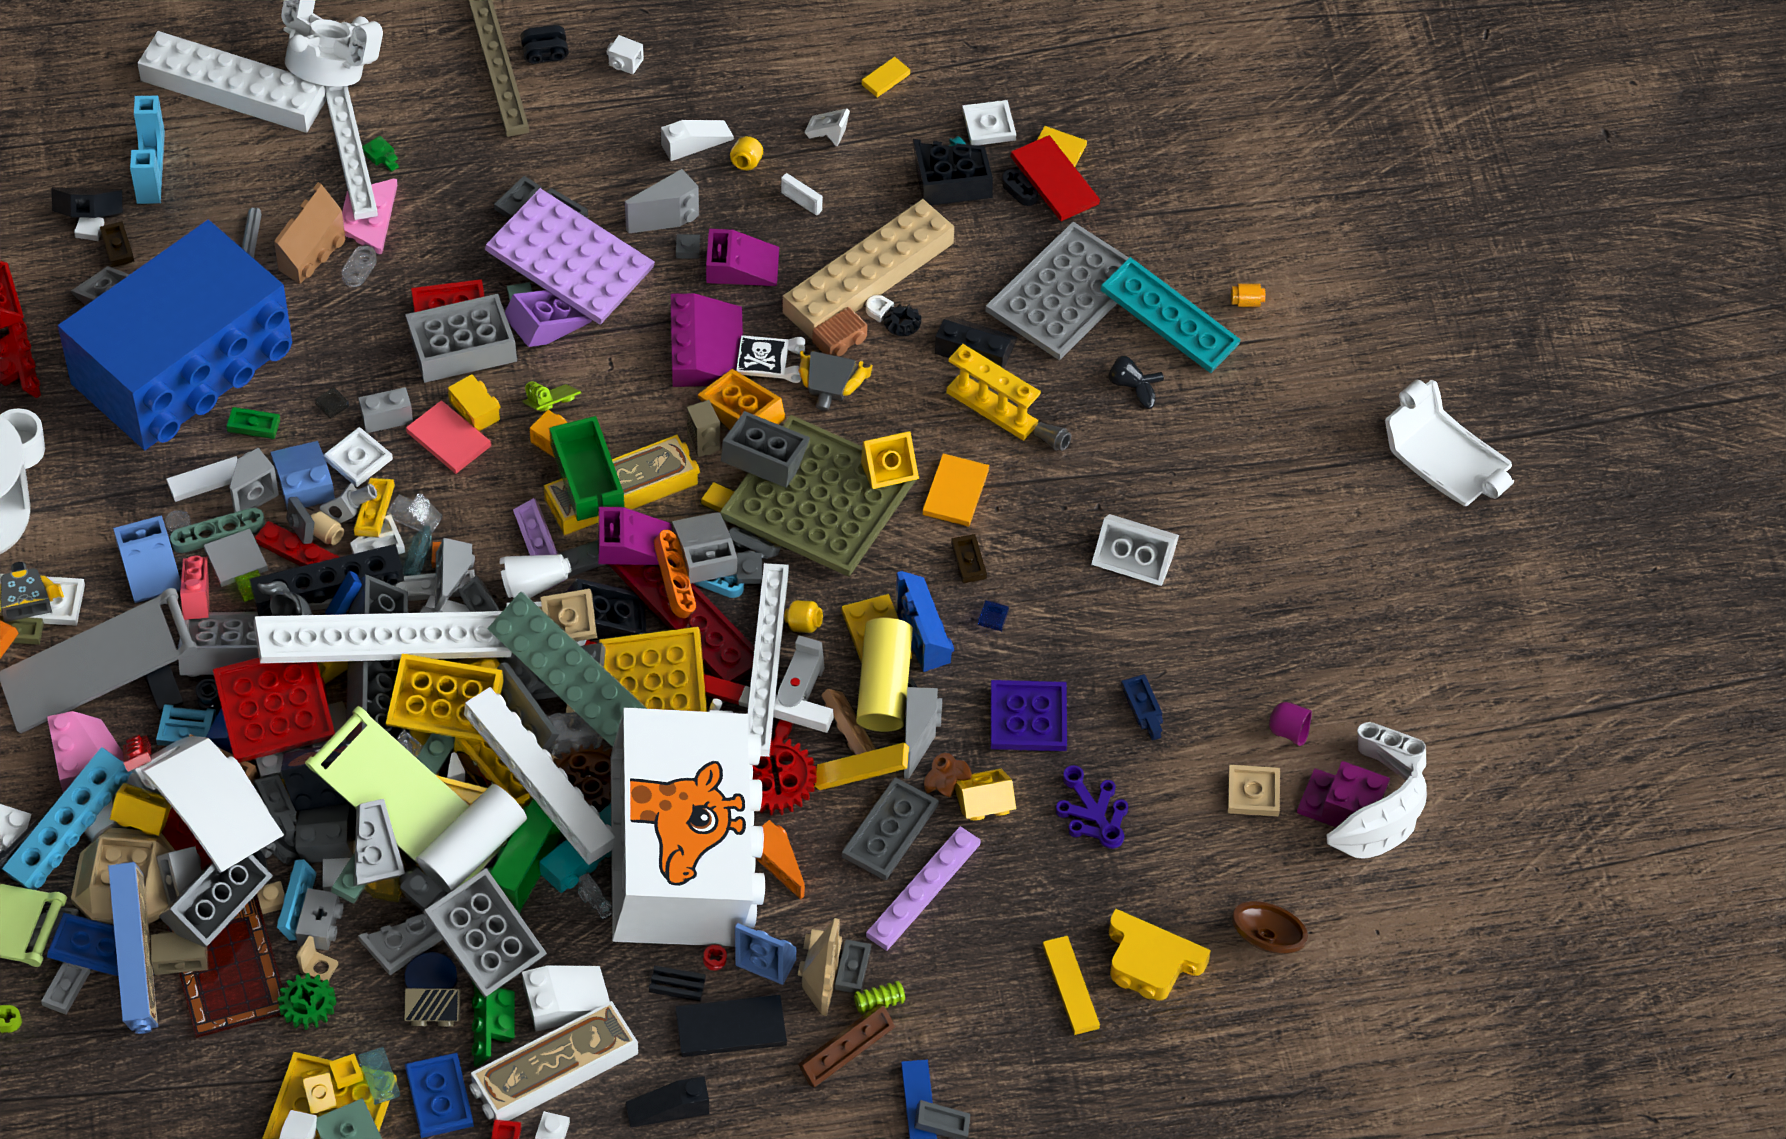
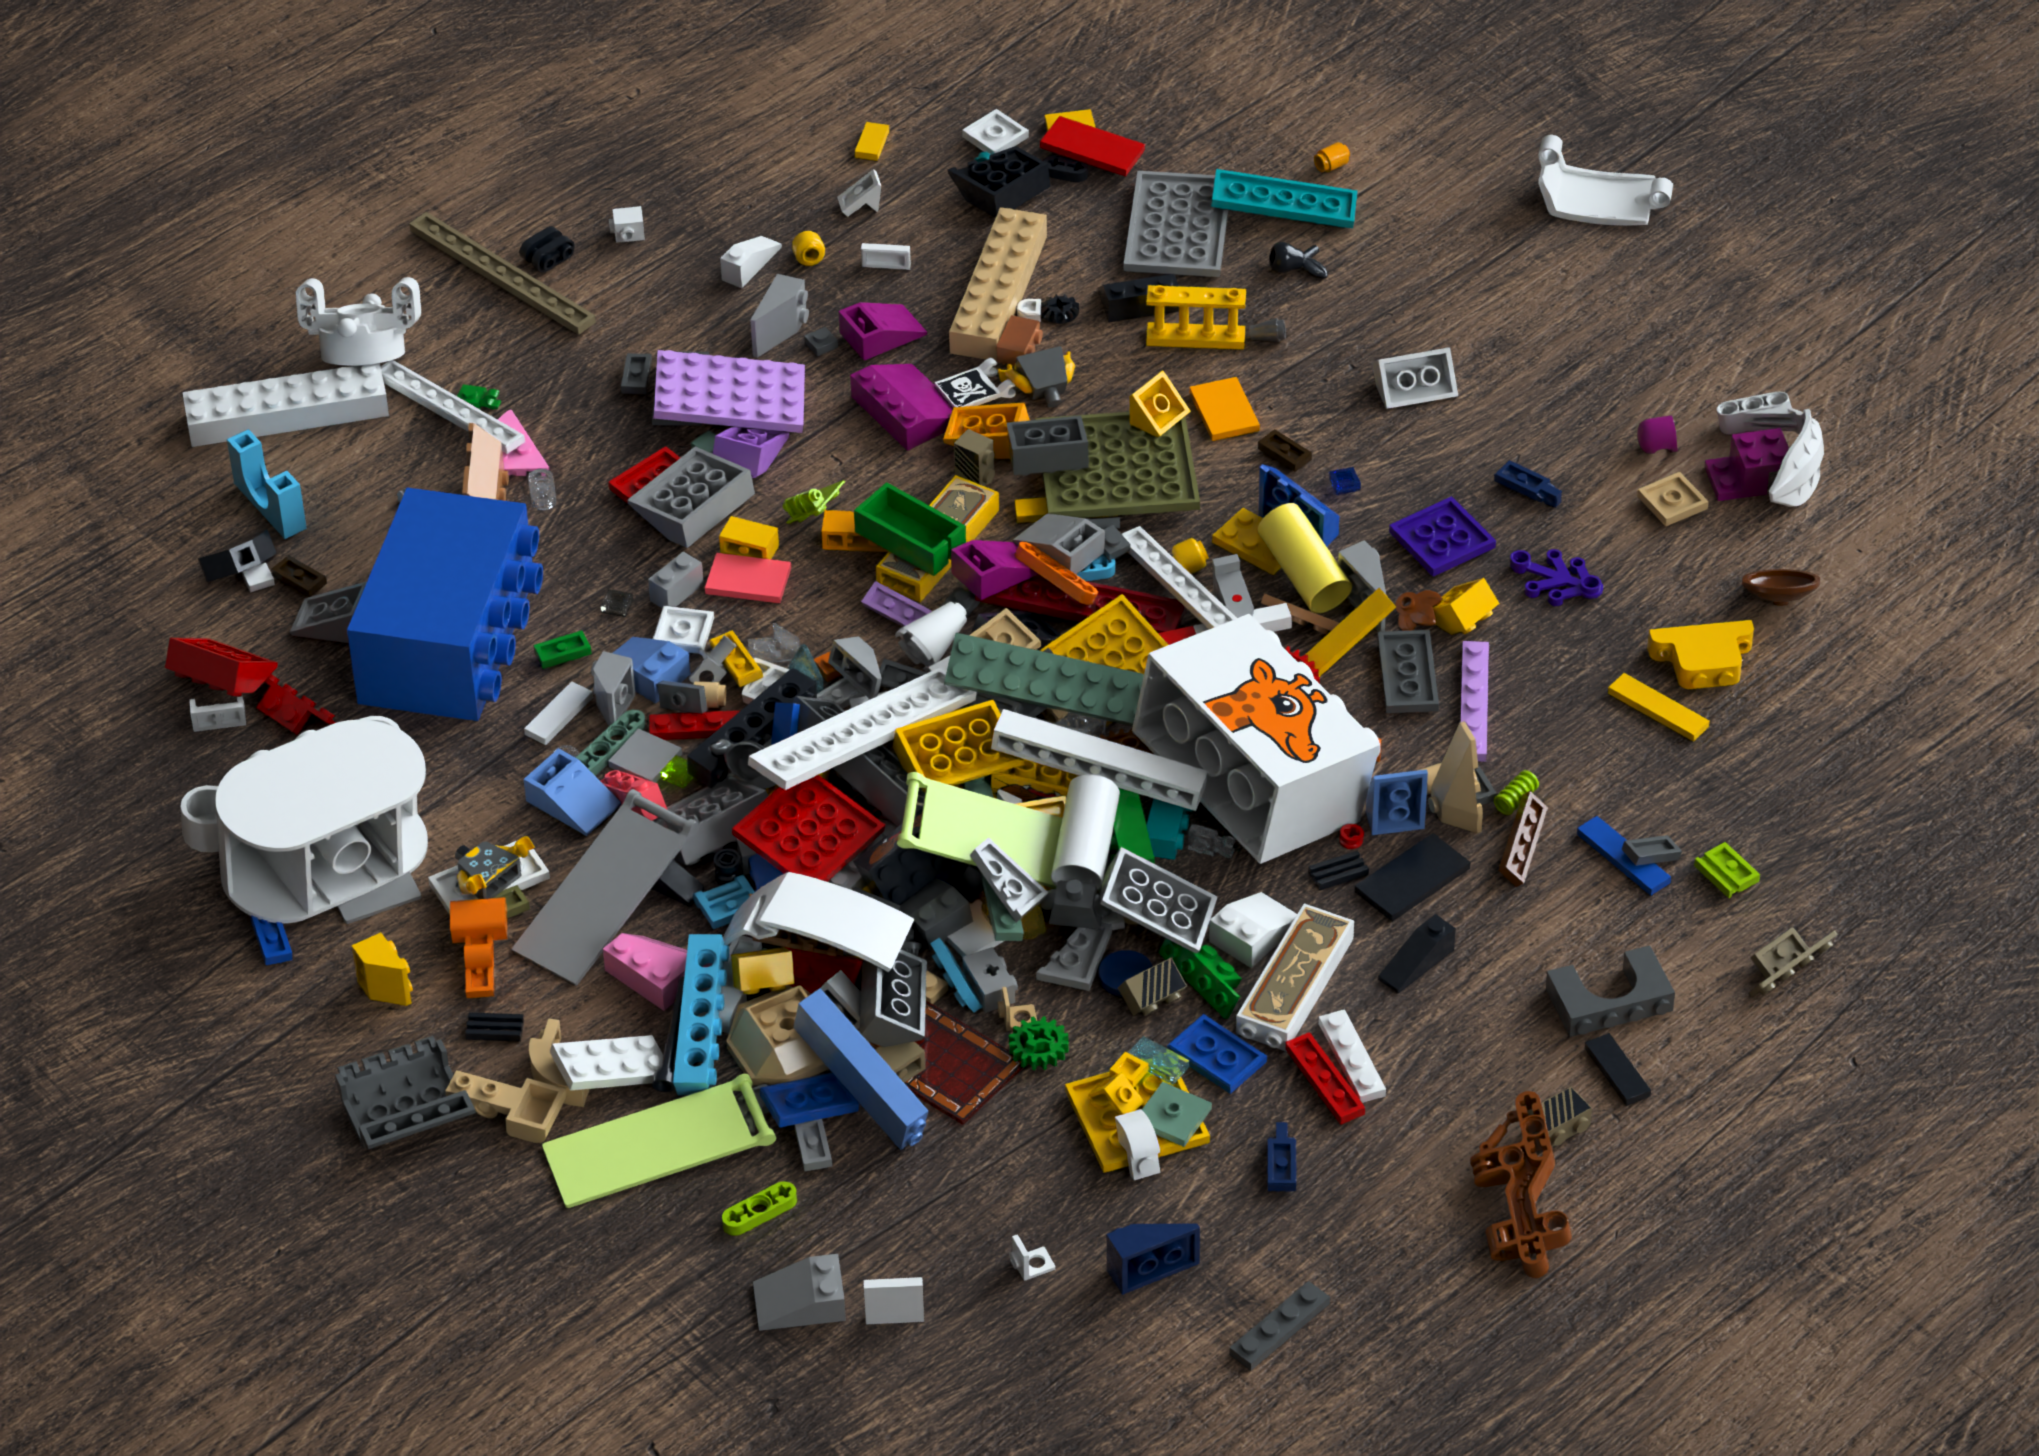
camera: 30 degrees left, 10 degrees down
(136, 752) = (727, 925): red plate -> none

